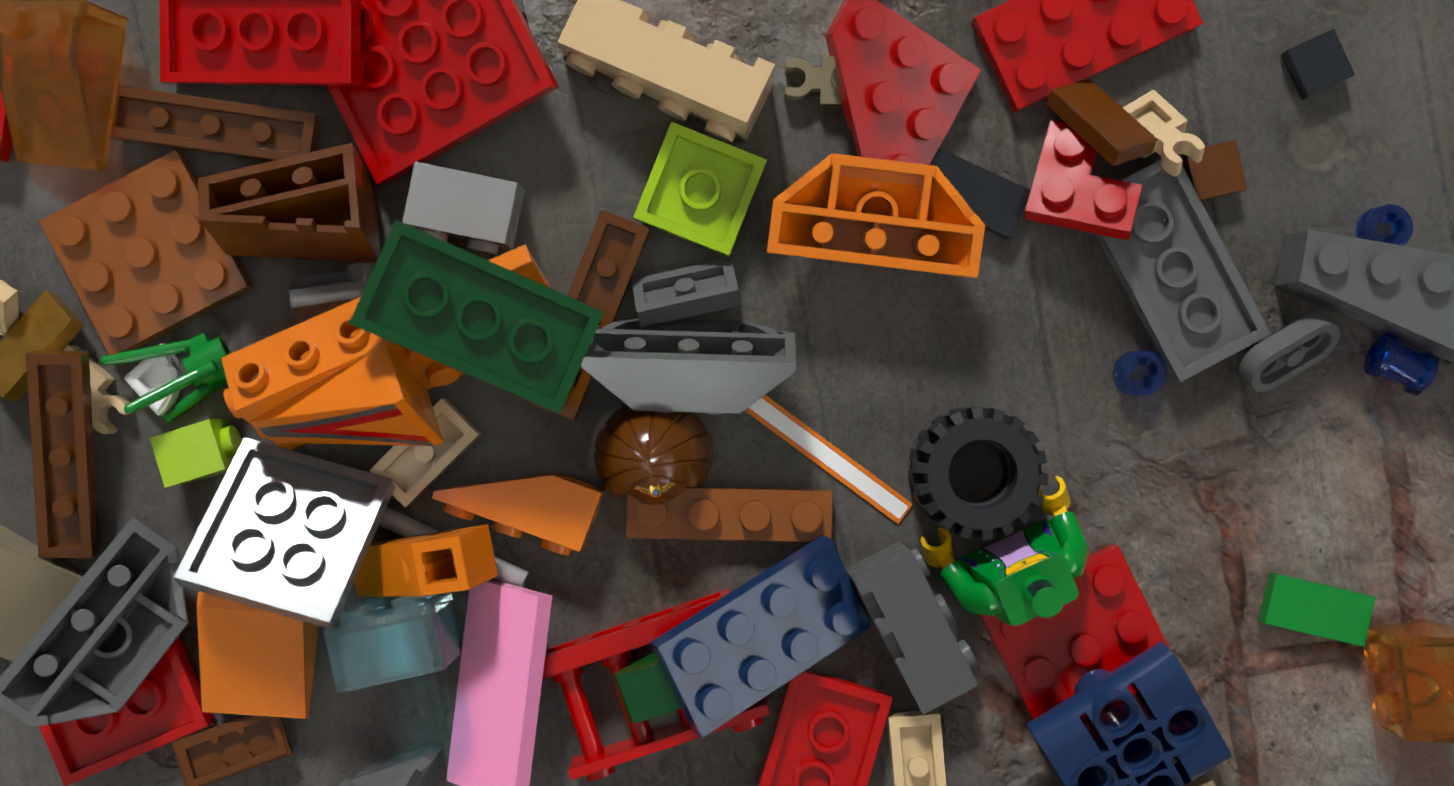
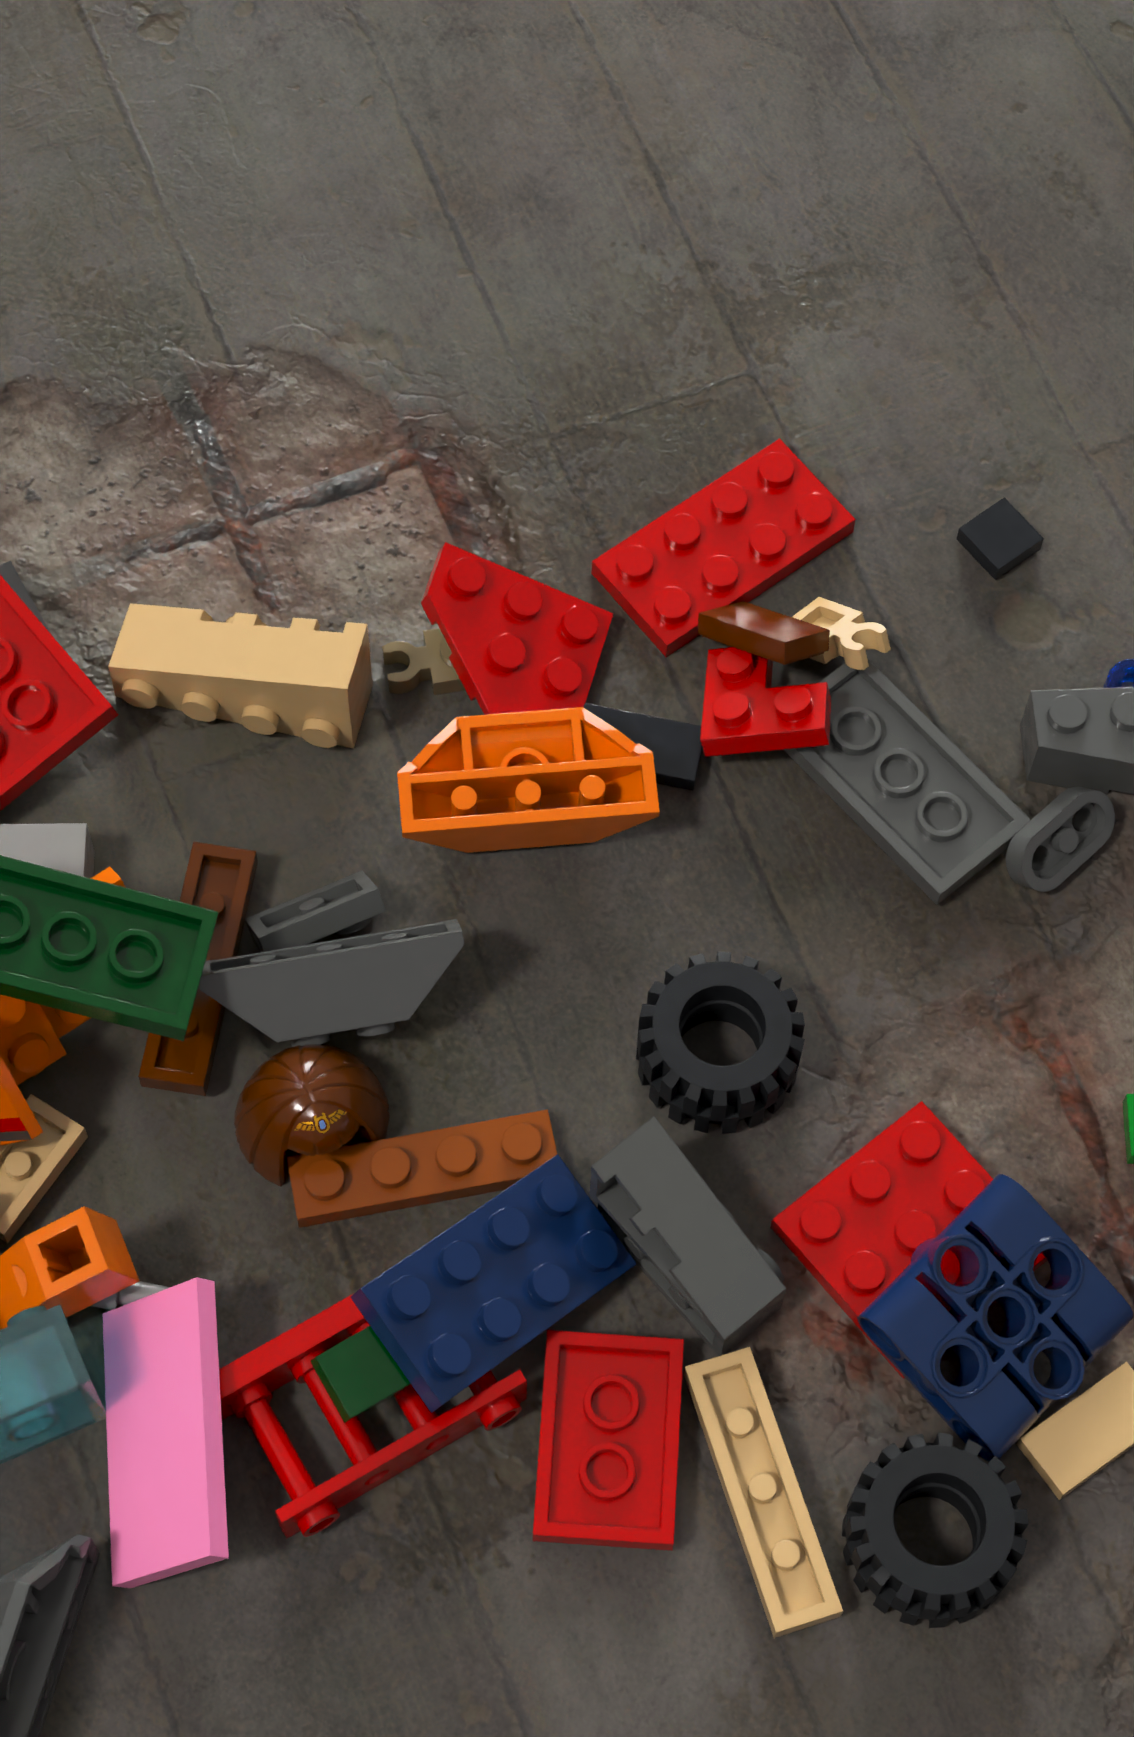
camera: 15 degrees left, 25 degrees down
(542, 505) = (175, 1197): orange slope -> none
(700, 189) = (309, 801): lime plate -> none
(830, 458) = (522, 1073): sticker -> none
(1021, 573) = (803, 1145): green torso -> none
(1126, 364) = (885, 921): clear blue bush -> none
(1218, 172) = (917, 667): reddish brown tile -> none

